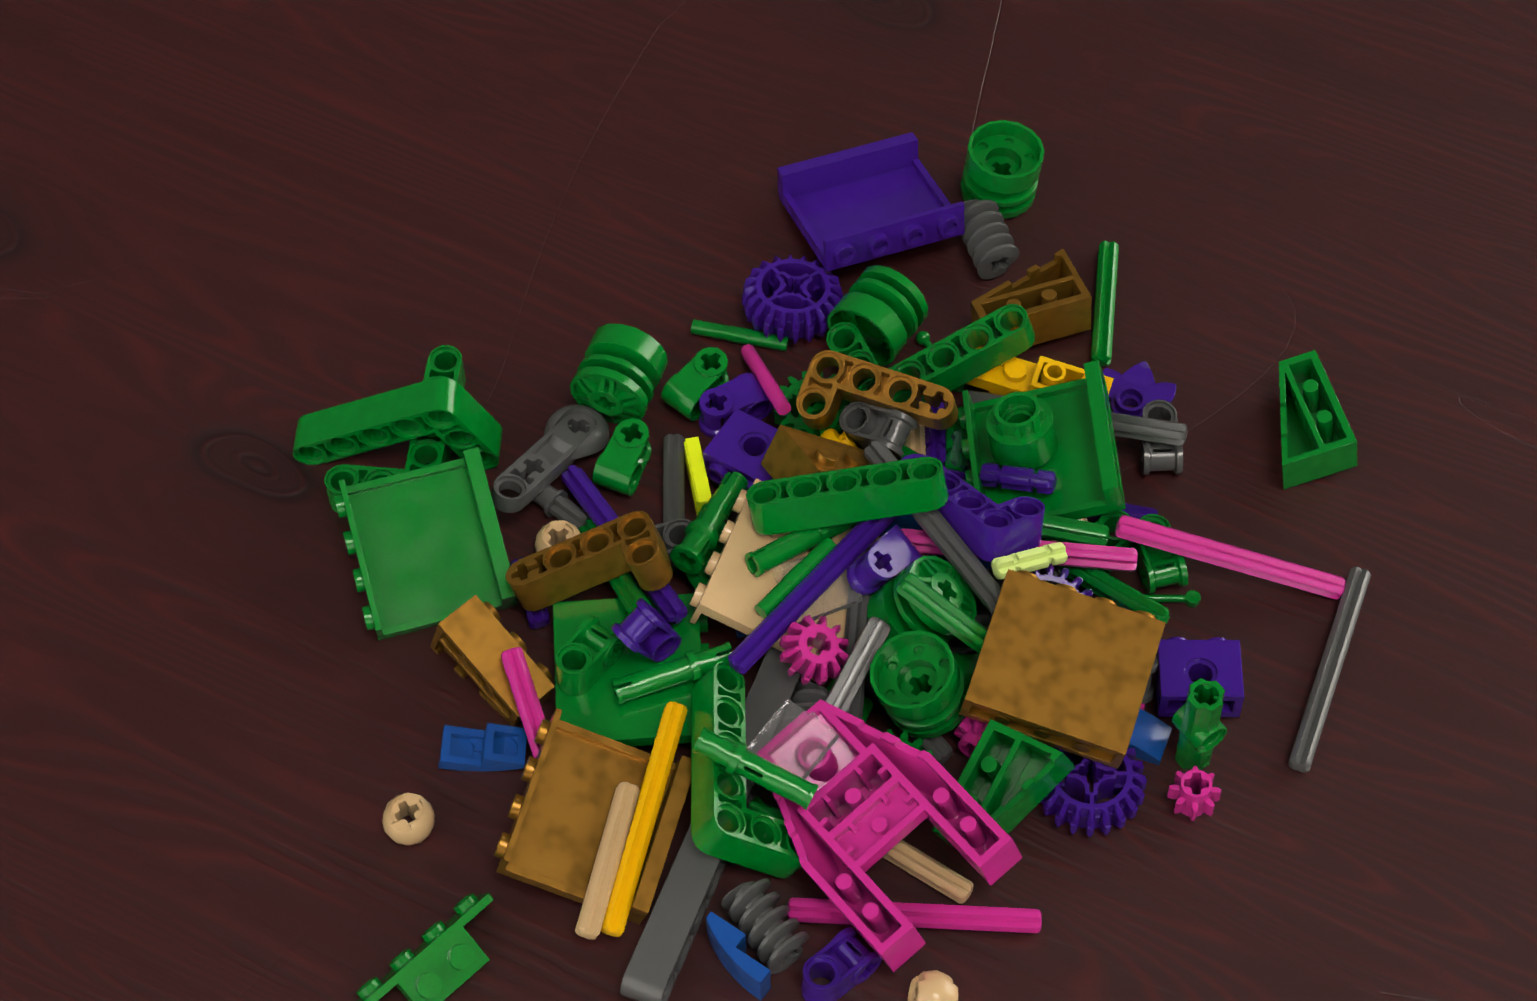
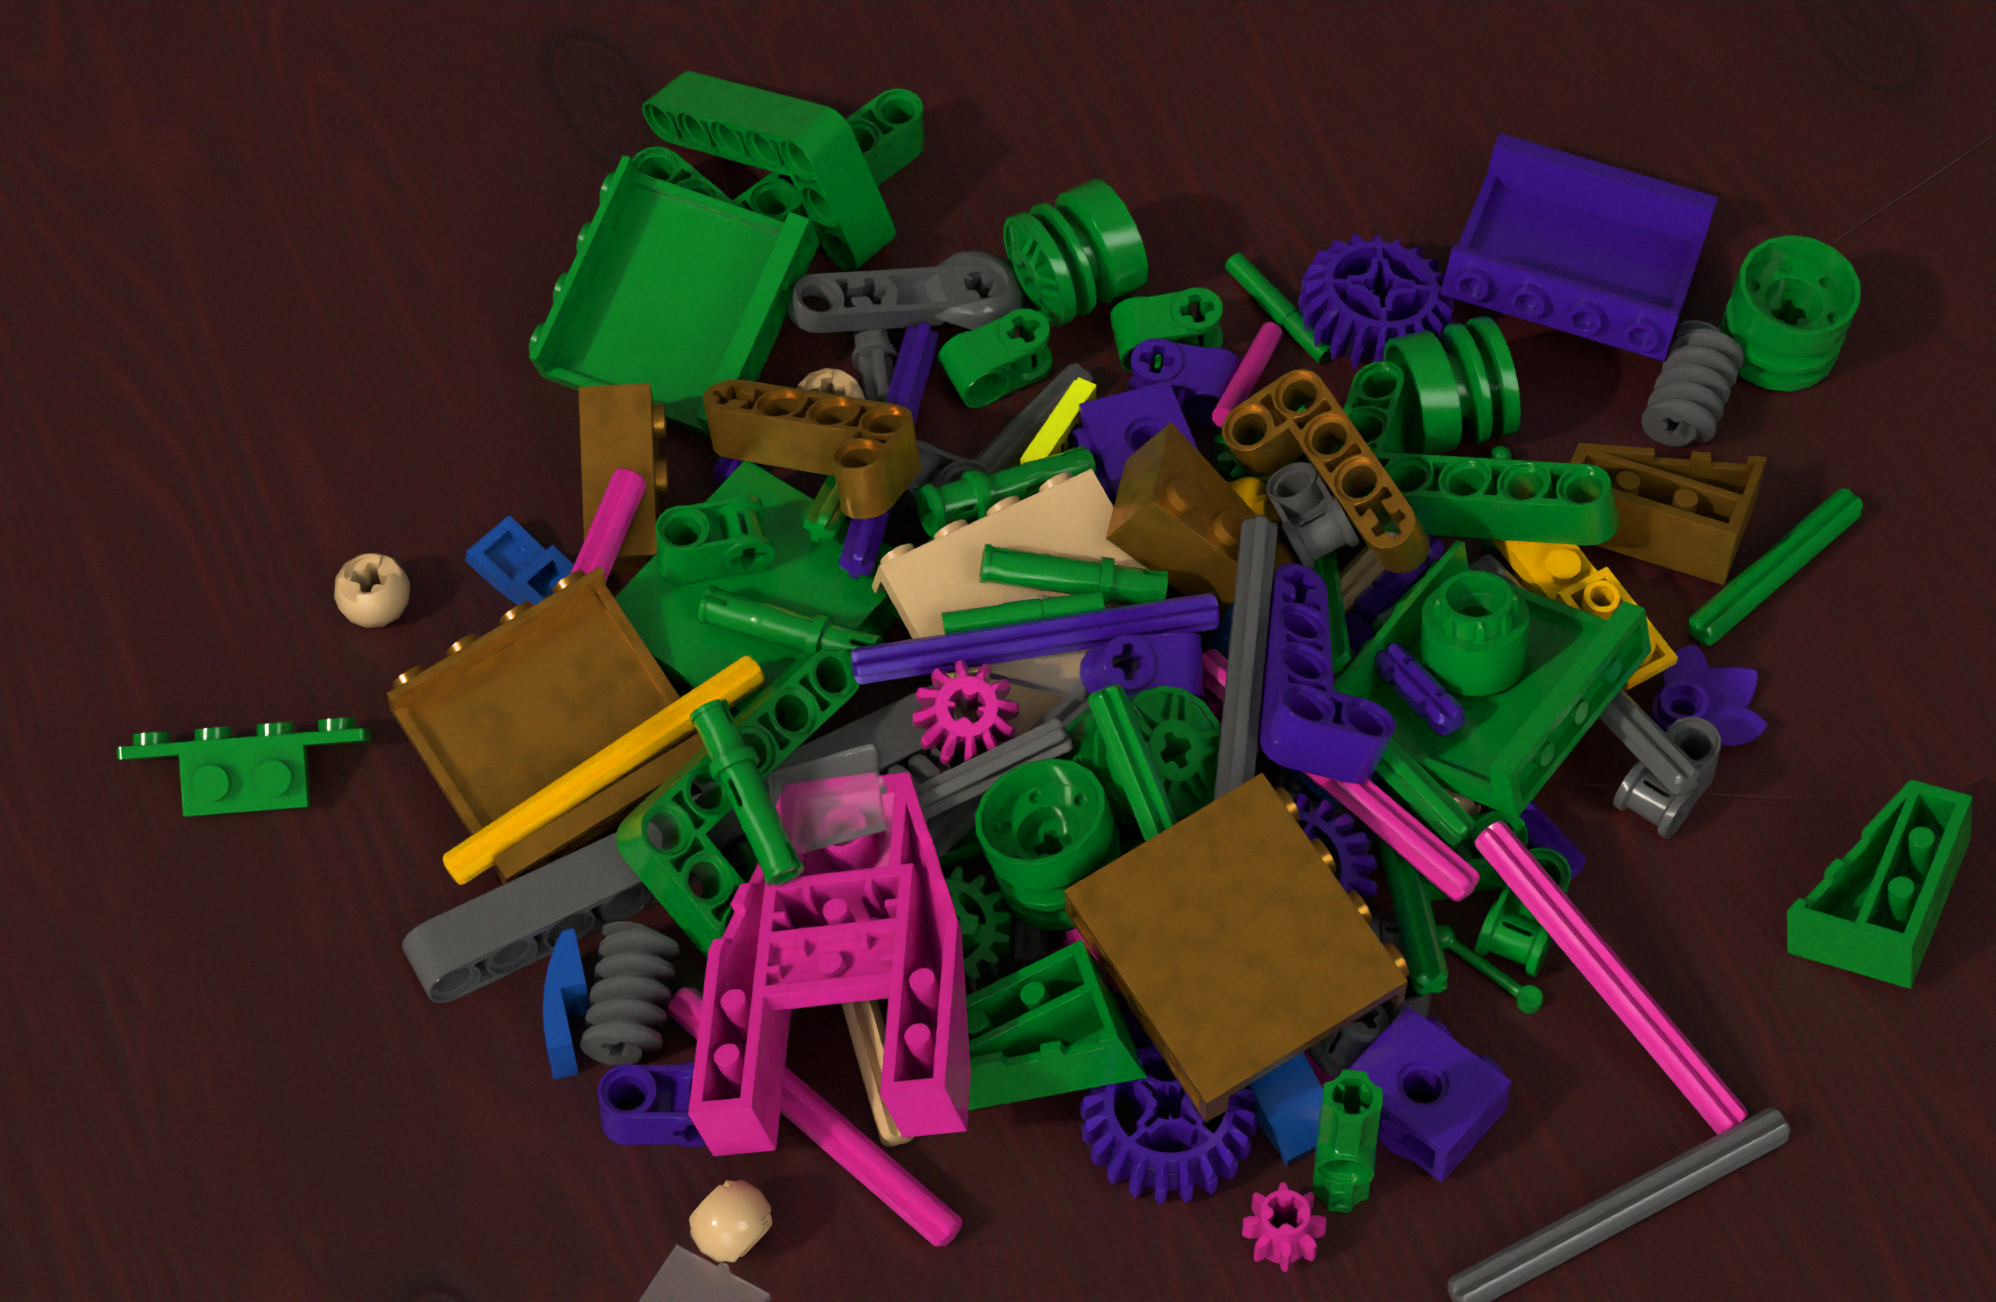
camera: 40 degrees right, 0 degrees up
(607, 861) = (515, 787): tan axle -> none
(648, 632) = (794, 557): dark purple piece -> none
(847, 495) = (1160, 555): green beam -> none
(1030, 559) = (1321, 789): yellowish green axle -> none

